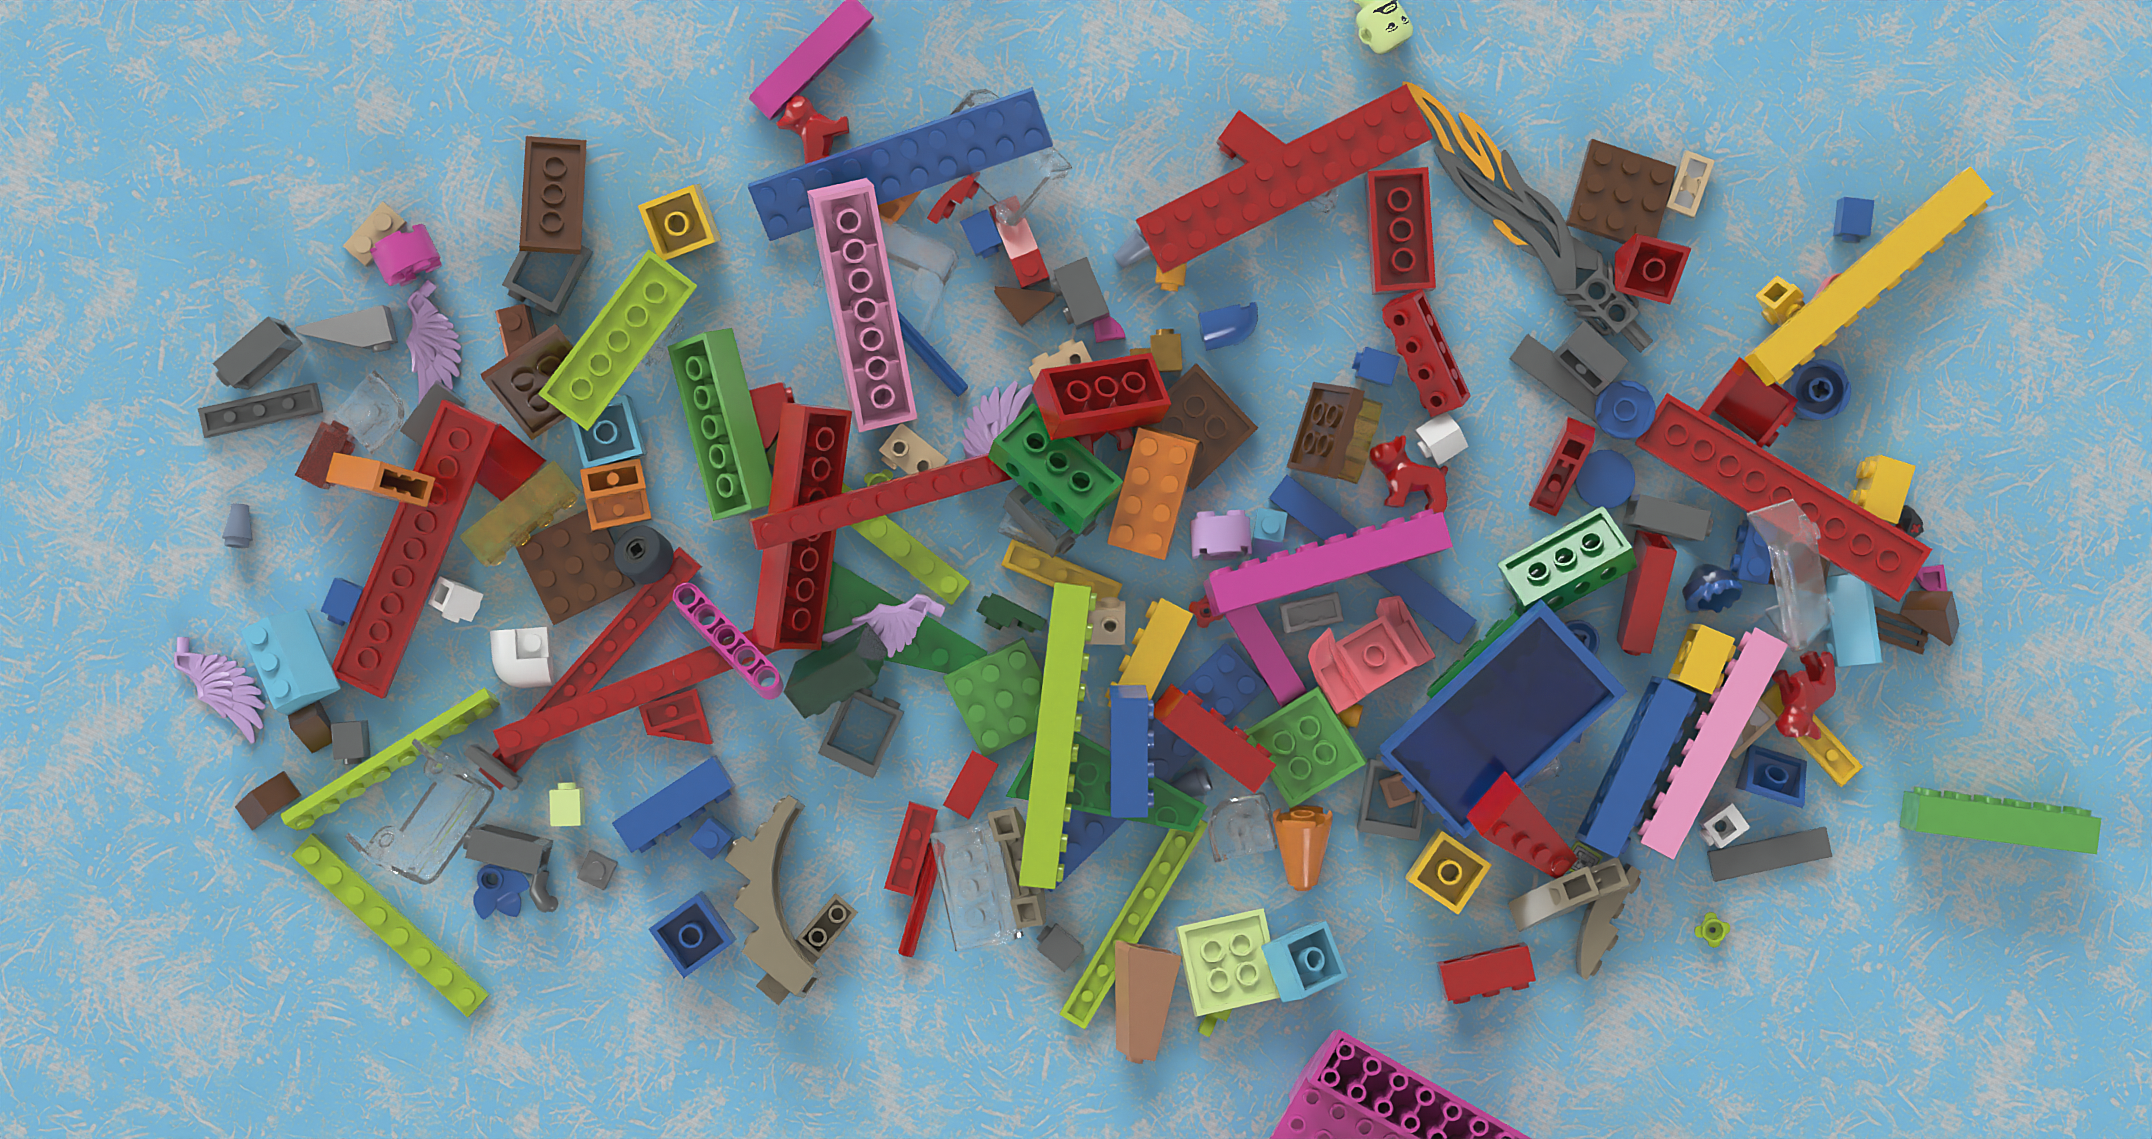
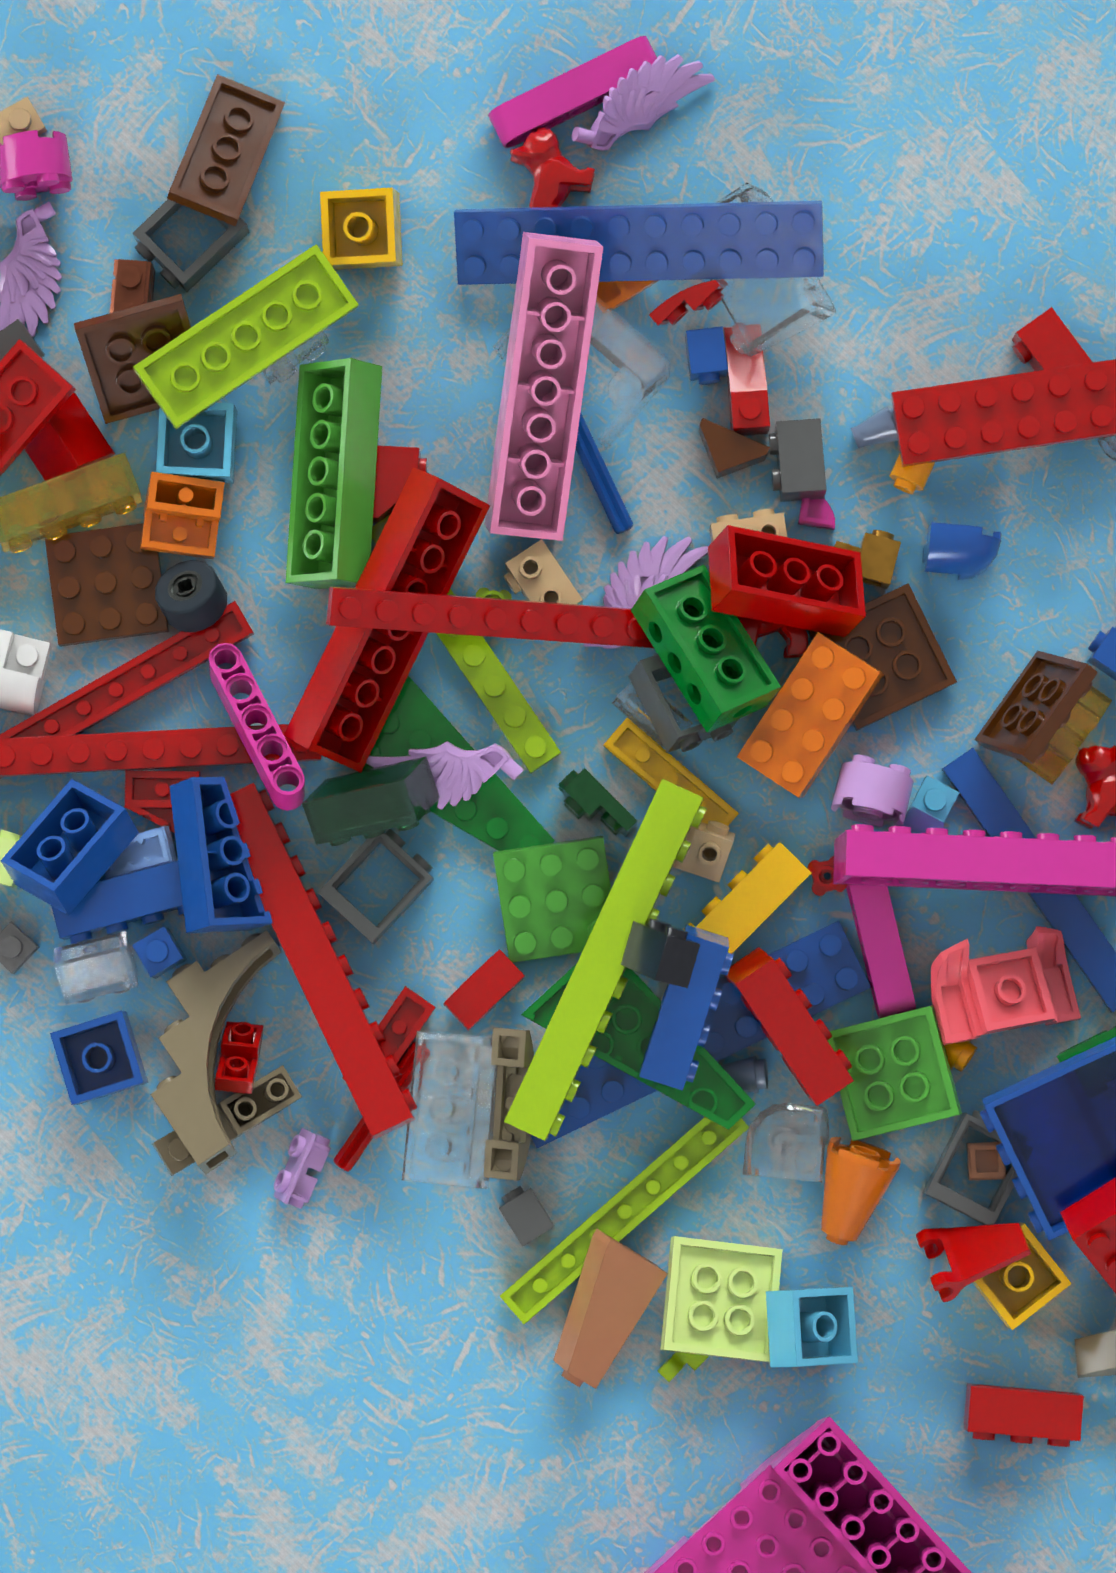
camera: 20 degrees right, 5 degrees down
(615, 781) = (70, 846): none -> blue brick
(666, 865) = (95, 968): none -> clear brick
(669, 766) = (145, 851): none -> light blue plate
(729, 755) = (213, 860): none -> blue wedge
(799, 898) = (239, 1057): none -> red slope
(833, 806) = (320, 970): none -> red brick
(866, 47) = (642, 100): none -> lavender animal
(873, 979) = (293, 1181): none -> lavender hinge
(1097, 719) = (661, 952): none -> black brick
(1311, 612) = (950, 918): light grey plate -> none
(1409, 866) = (972, 1253): none -> red flag

